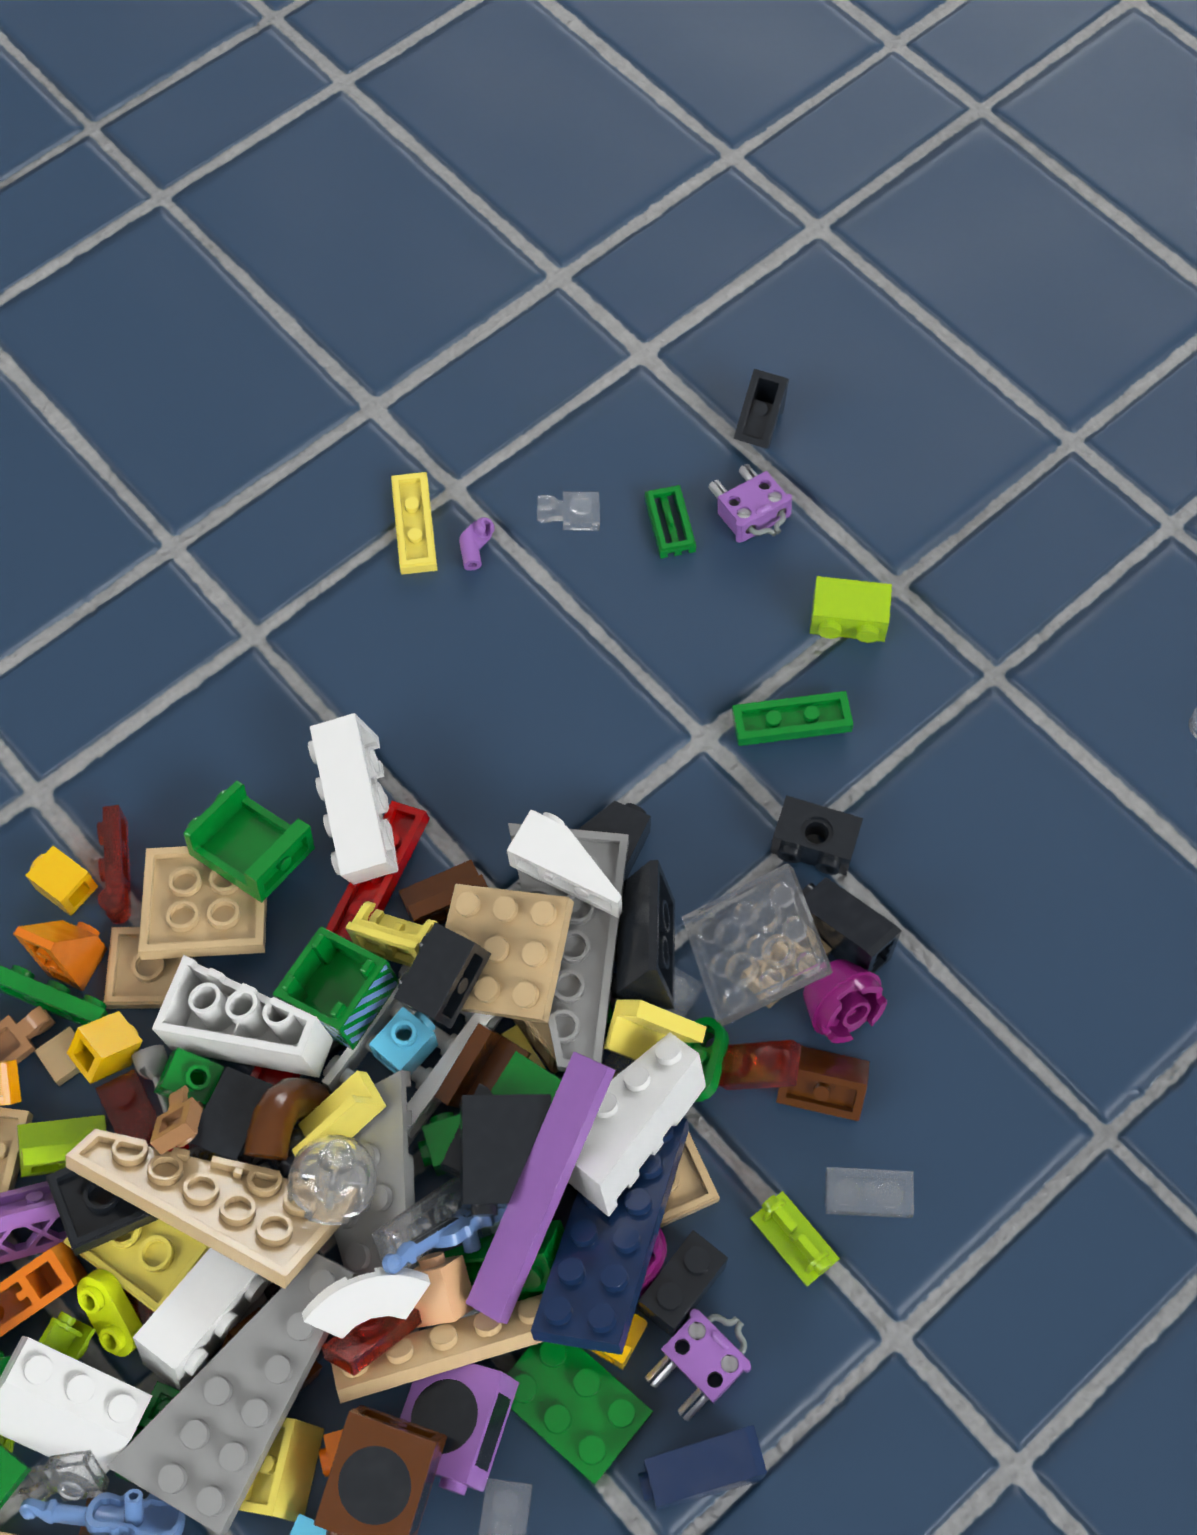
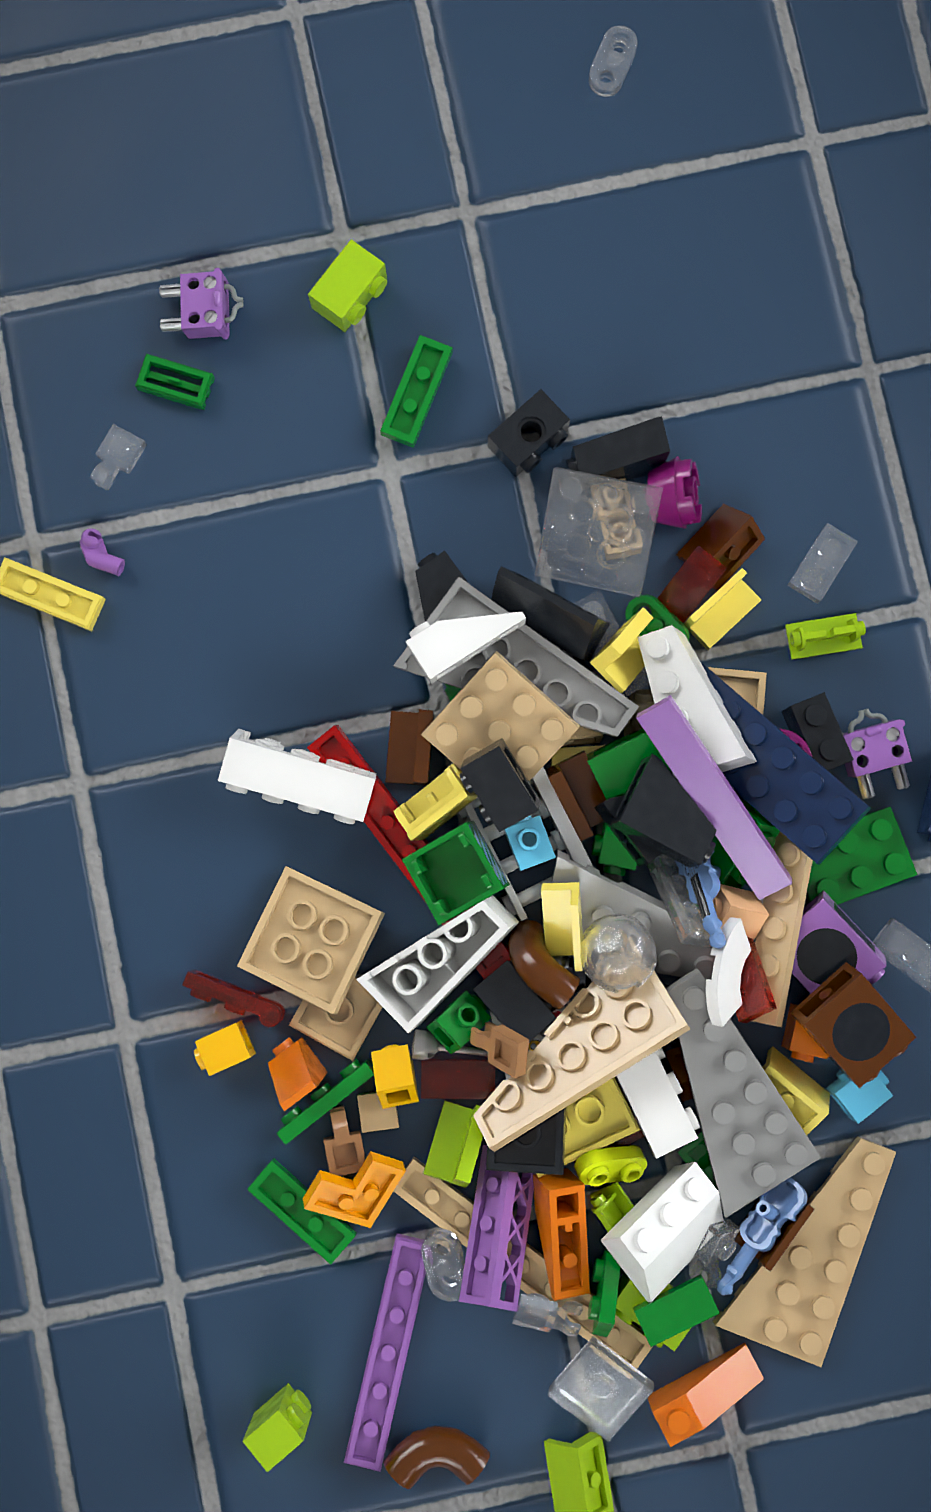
camera: 60 degrees left, 20 degrees up
(247, 842) = (282, 881): green panel -> none
(757, 1115) = (722, 611): none -> light yellow panel
(761, 408) = (116, 241): black slope -> none

